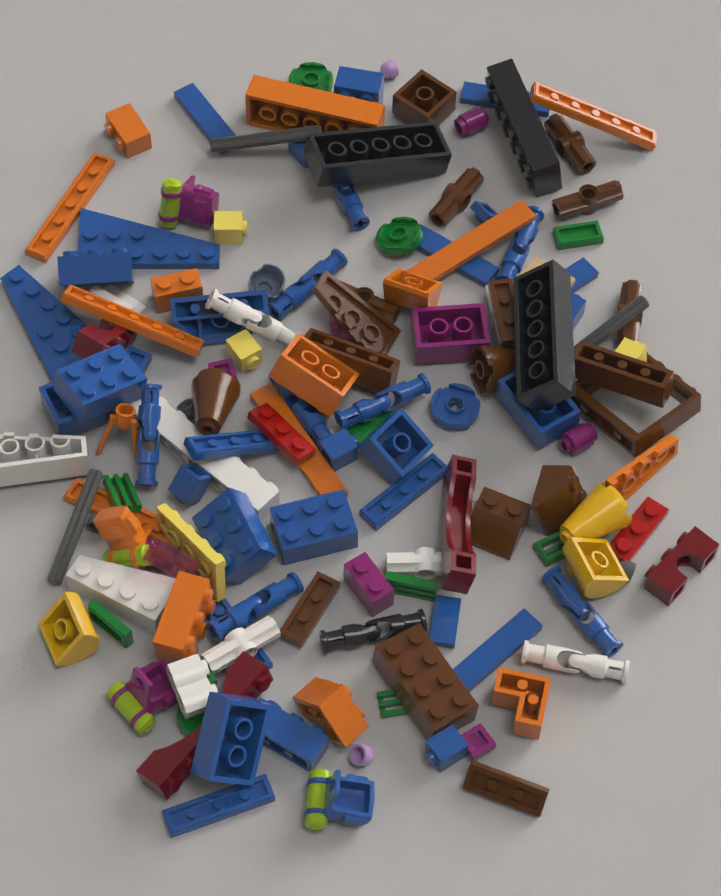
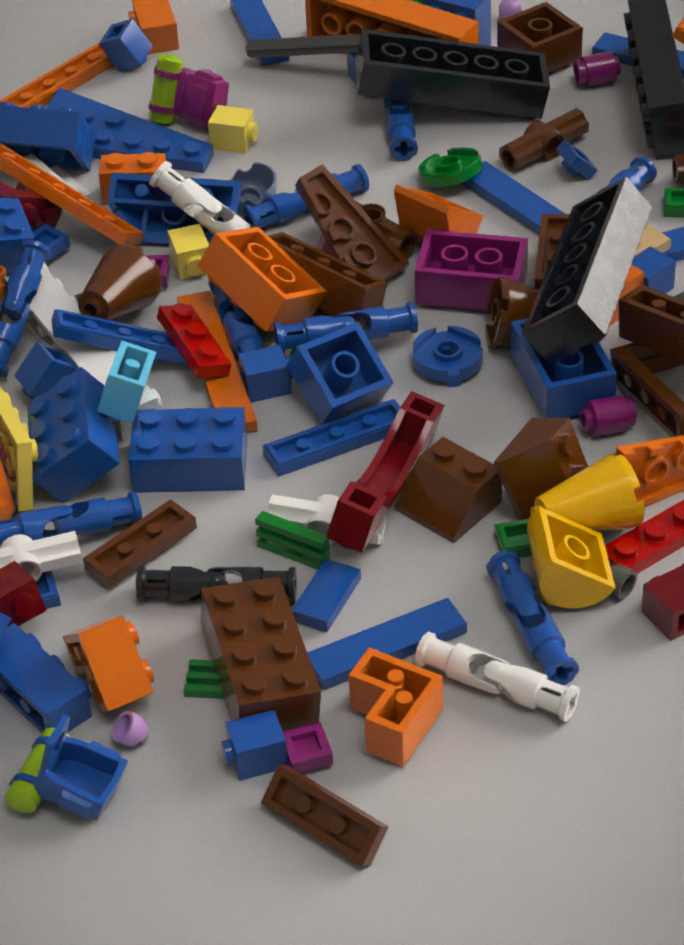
camera: 20 degrees right, 15 degrees down
(118, 160) = (126, 45): none -> blue brick
(263, 491) = (126, 382): none -> medium azure brick
(368, 584) = (234, 526): magenta brick -> none
(475, 242) = (550, 181): orange tile -> none

